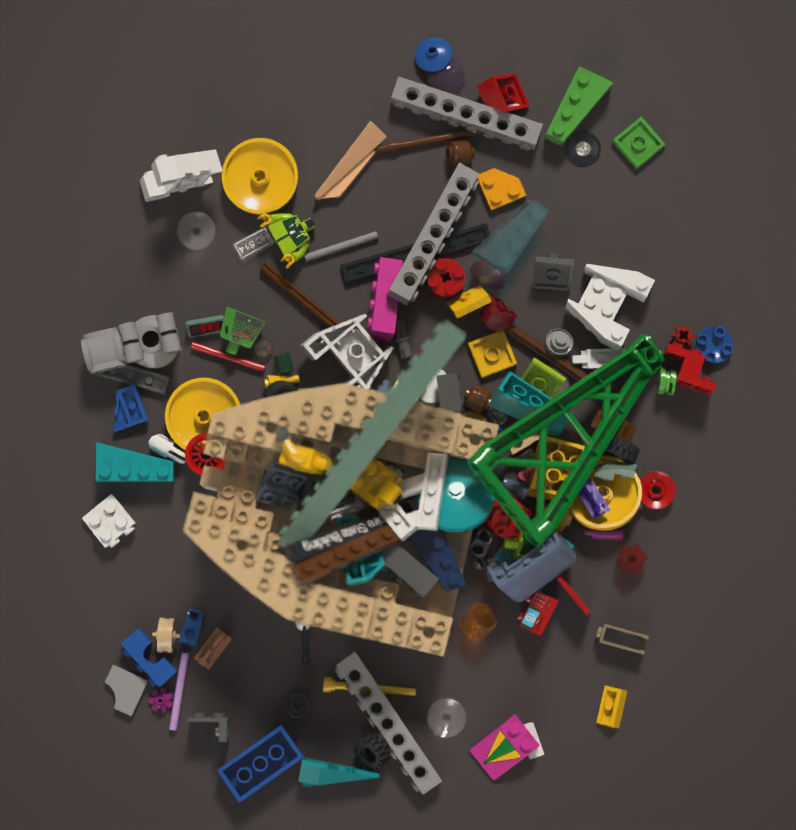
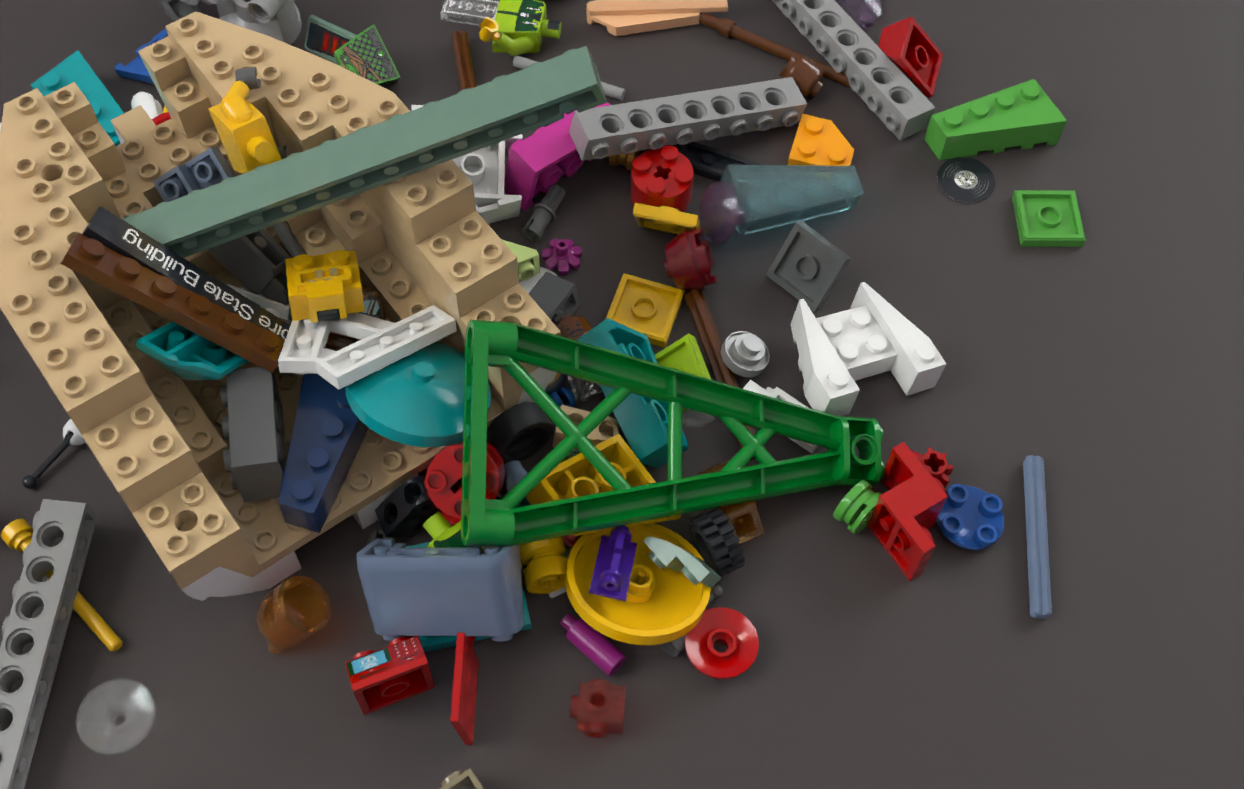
camera: 40 degrees right, 25 degrees down
(747, 330) = (1037, 538): none -> sand blue axle

